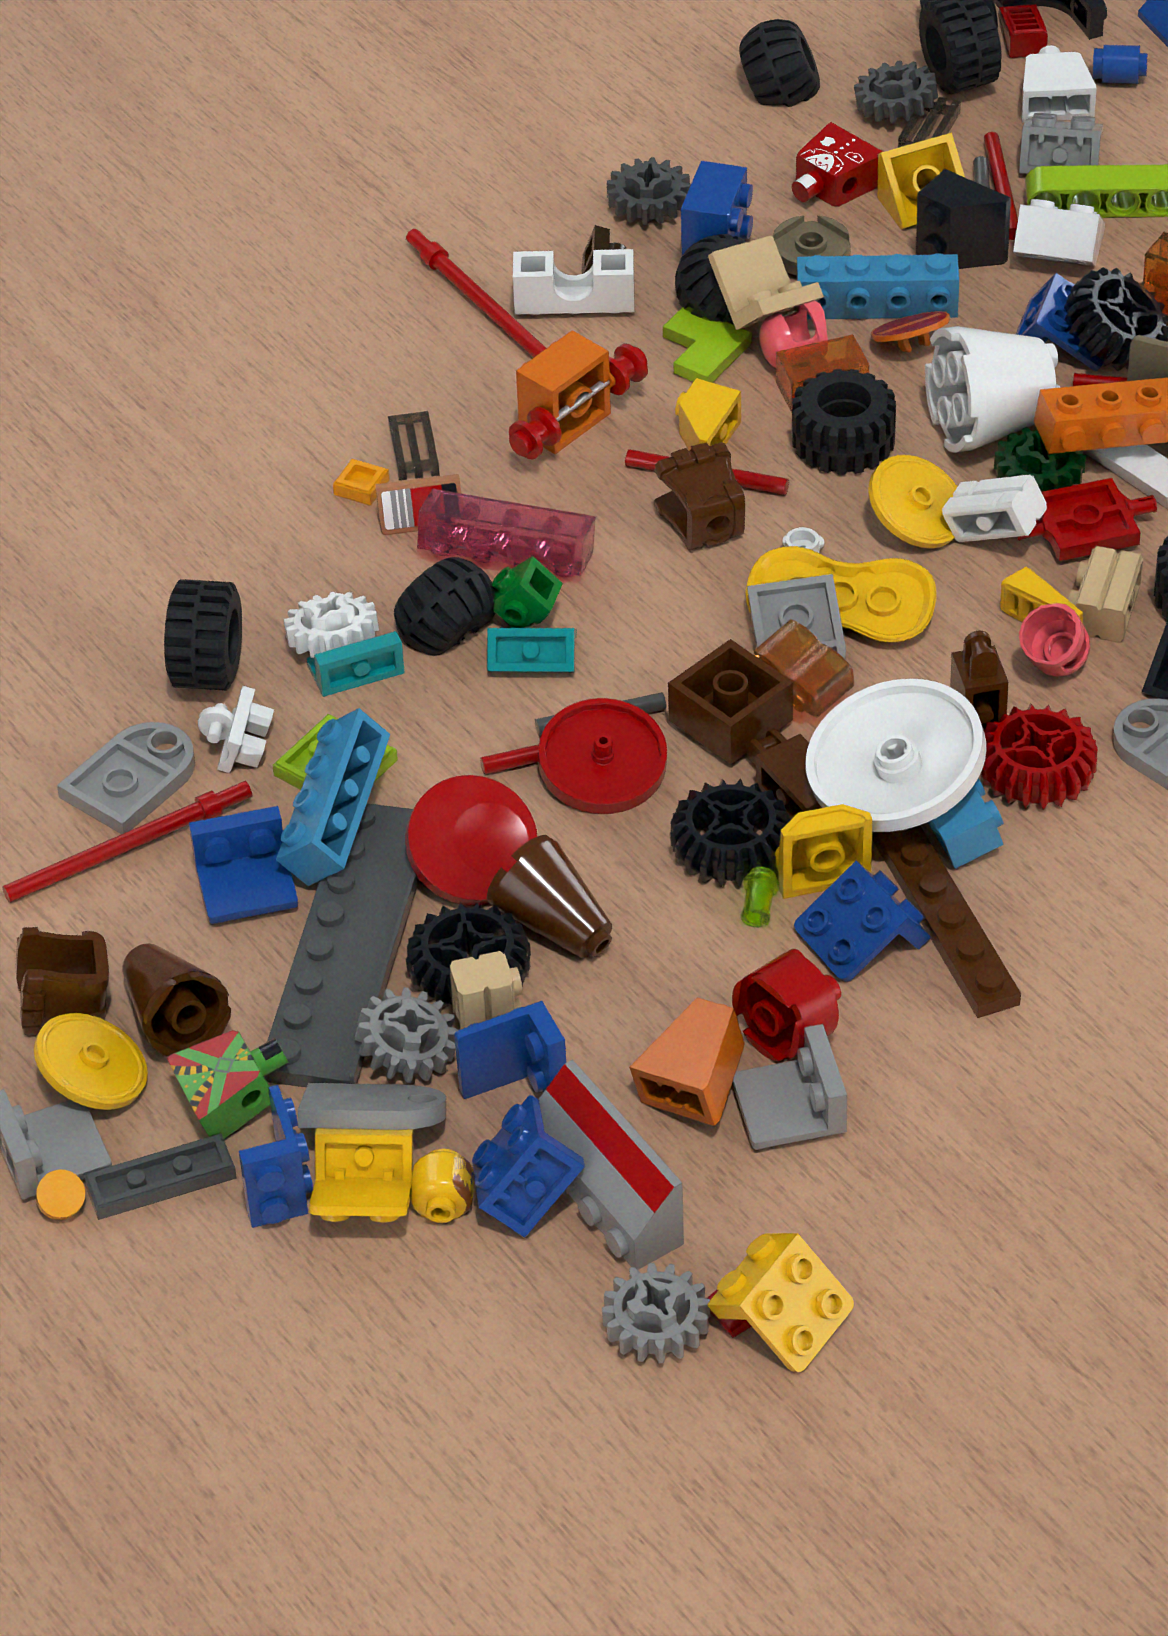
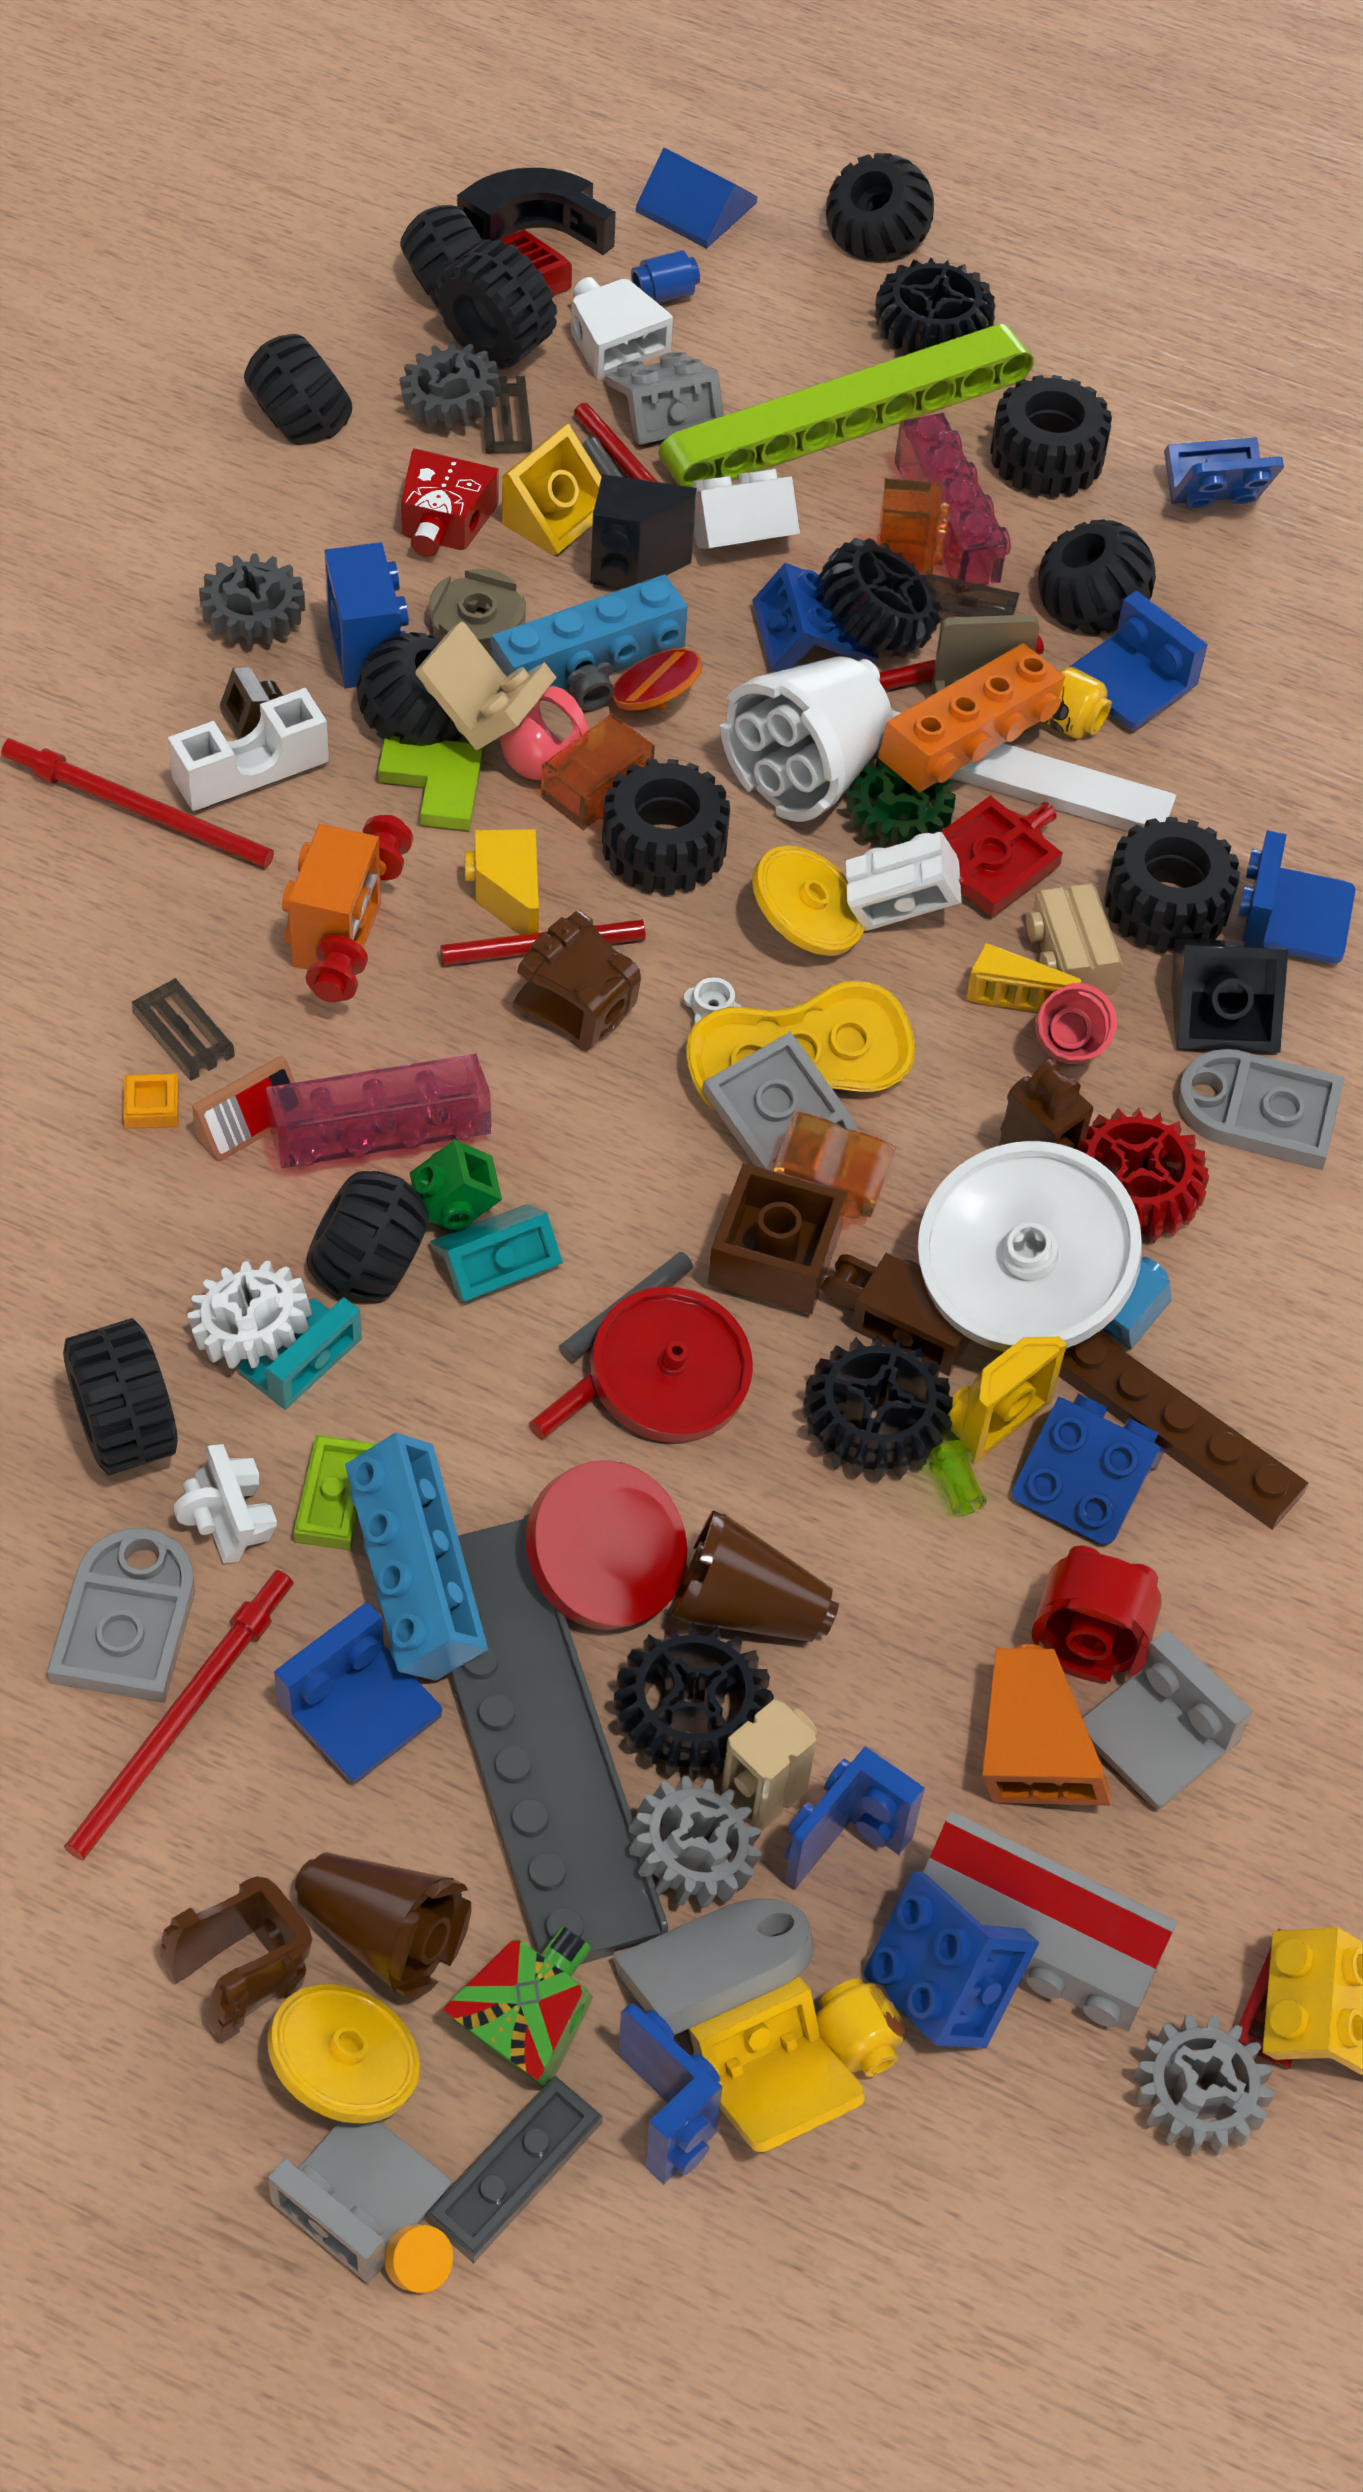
camera: 35 degrees left, 10 degrees up
(858, 317) = (591, 685): none -> dark grey plate

